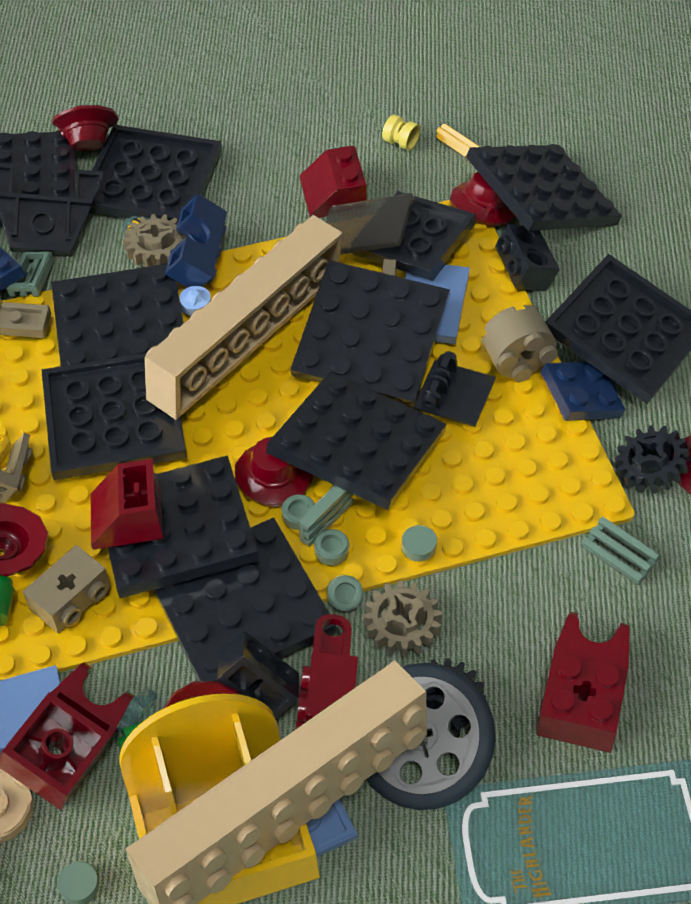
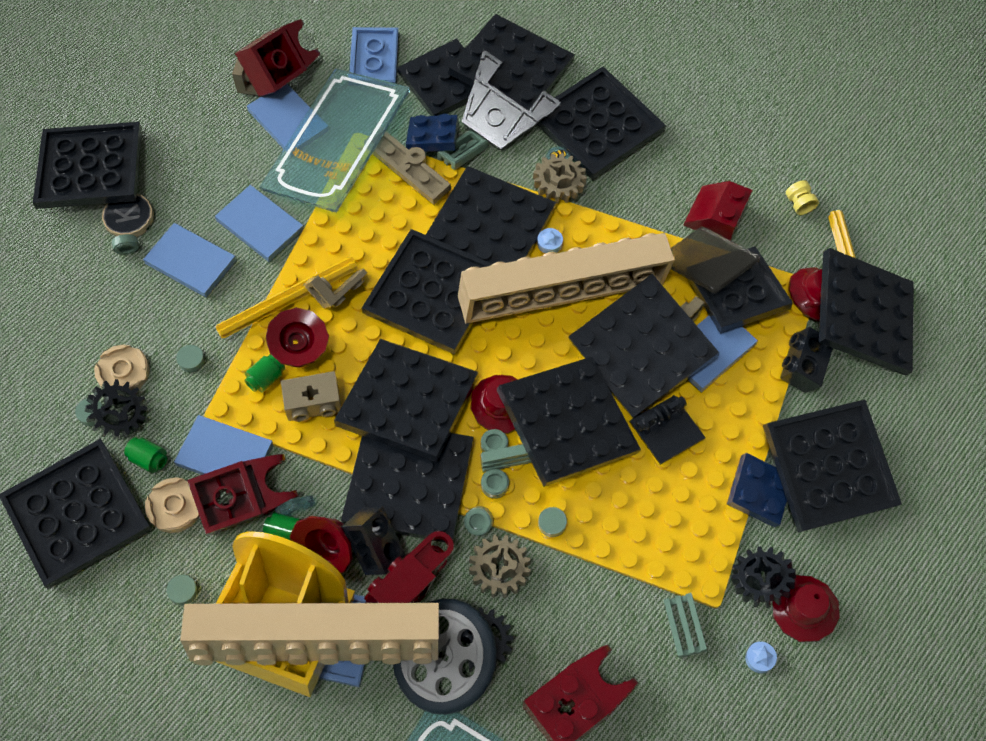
camera: 35 degrees right, 10 degrees up
(86, 126) = (577, 59): dark red hat -> none
(127, 506) = (380, 369): dark red slope -> none
(195, 257) = (596, 188): dark blue arch -> none
(519, 342) = (737, 425): dark tan brick -> none

